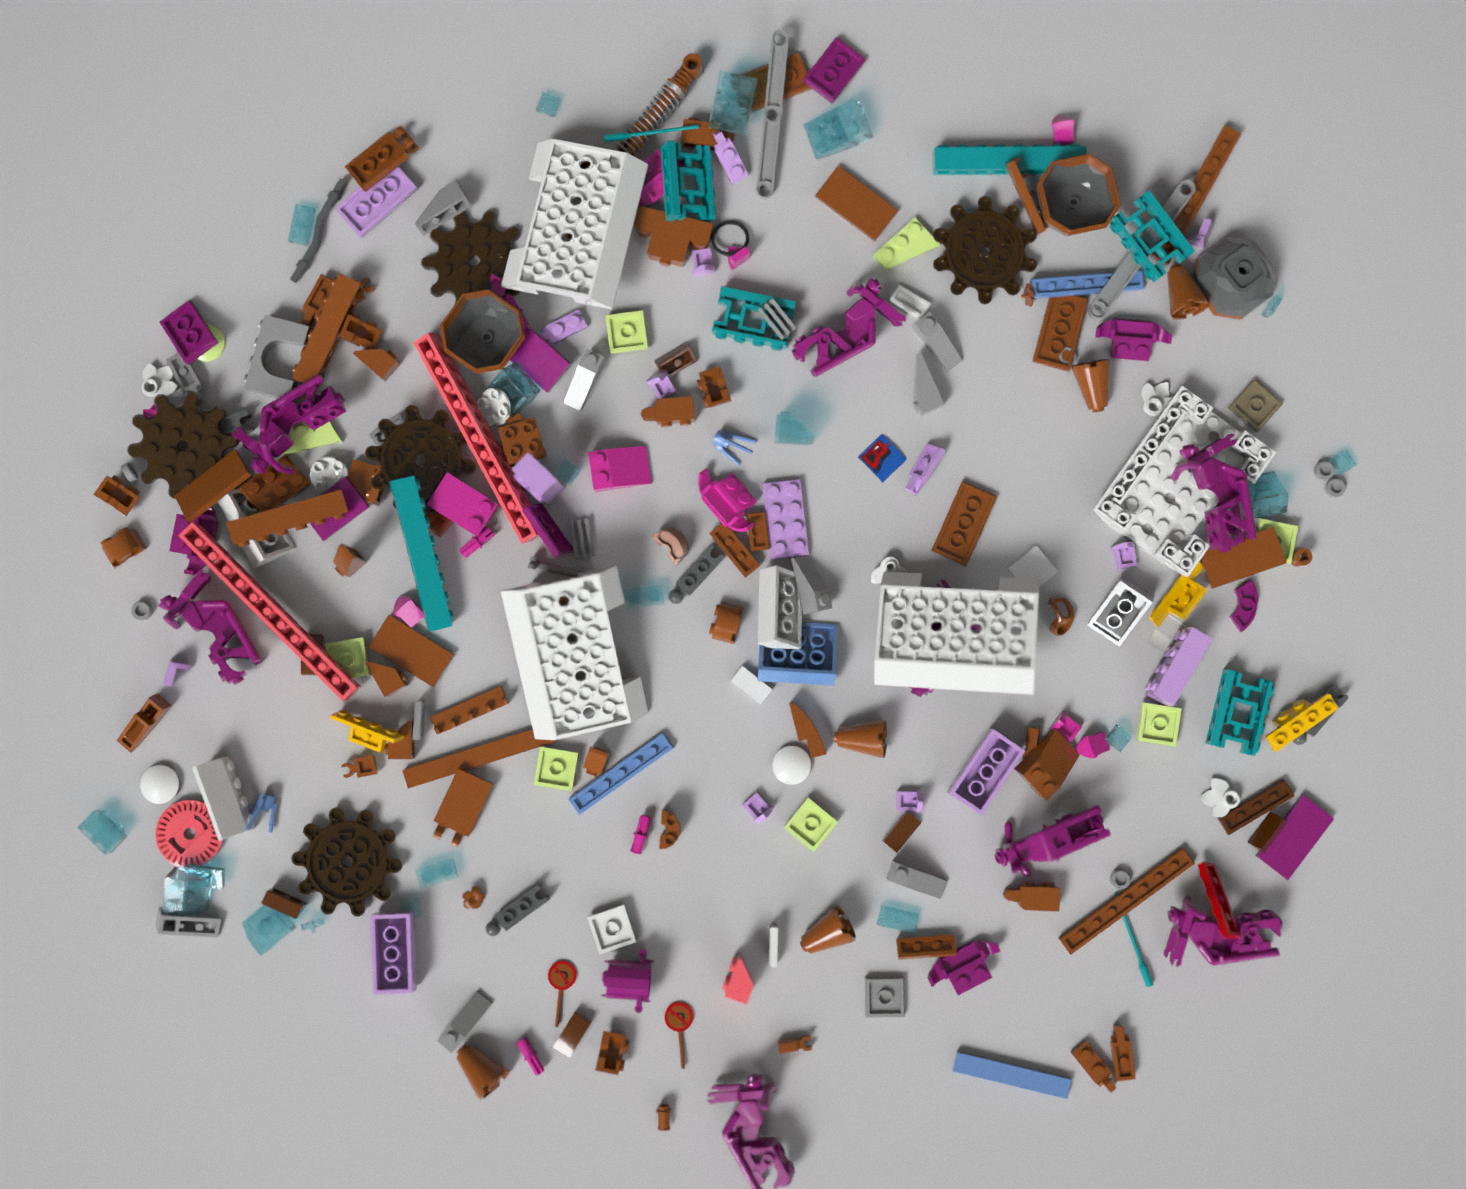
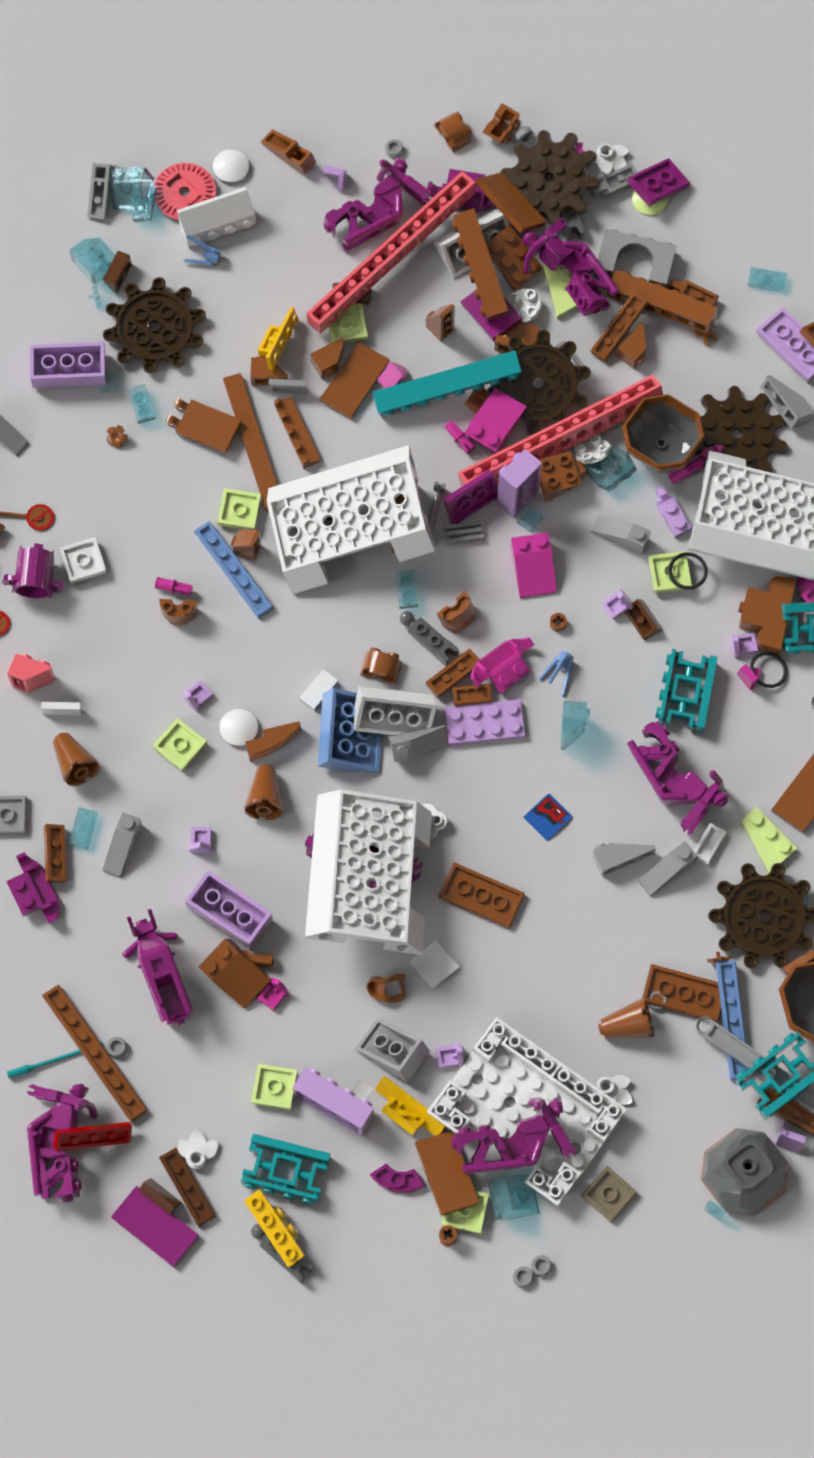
camera: 90 degrees right, 15 degrees down
(103, 831) = (188, 118): clear light blue brick -> none
(302, 264) = (728, 280): dark grey bar -> none
(356, 376) = (619, 326): none -> dark orange tile
(359, 332) = (663, 329): dark orange cylinder -> none
(363, 767) = (243, 337): dark orange plate -> none
(516, 911) = (103, 475): dark grey plate -> none
(540, 360) = (640, 491): magenta tile -> none
(640, 325) = (683, 586): none -> black tyre
(671, 411) = (591, 613): dark orange hinge -> none
(683, 441) = (562, 618): none -> dark orange bush
(714, 387) = (614, 654): dark orange cylinder -> none
(767, 306) = (697, 697): light grey tile -> none
(901, 831) = (170, 831): reddish brown slope -> none
(924, 467) = (537, 854): lavender hinge -> none
(1035, 897) = (100, 959): dark orange hinge -> none
(1093, 745) = (254, 1020): dark pink tile -> none
(1118, 738) = (260, 1046): clear light blue tile -> none
(1132, 337) = (678, 1064): magenta plate -> none
(1184, 293) = (725, 1116): dark orange cone -> none
(1342, 462) = (550, 1284): clear light blue tile -> none

